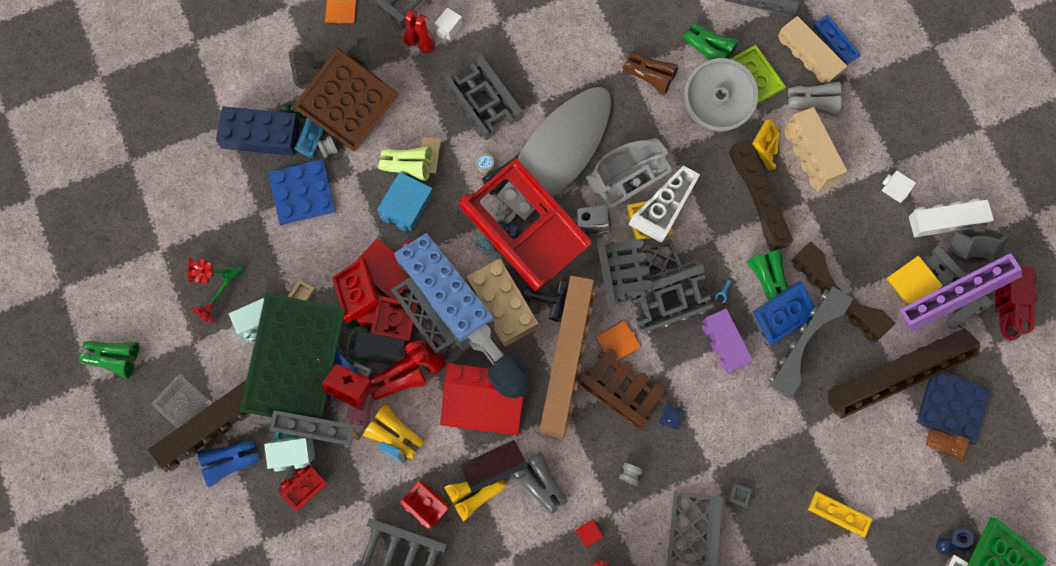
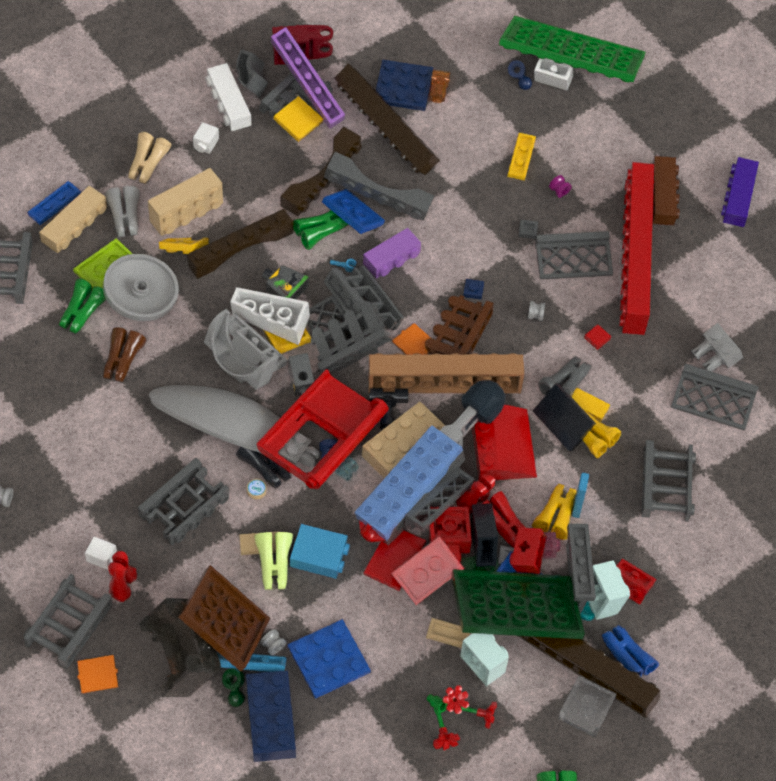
camera: 105 degrees left, 15 degrees down
(425, 504) = (615, 469): red bracket -> none
(509, 501) = (591, 404): none -> yellow tile
(704, 228) = (285, 282): none -> dark grey torso
(790, 545) = (560, 186): none -> magenta wheel
(882, 129) = (144, 145): none -> tan piece

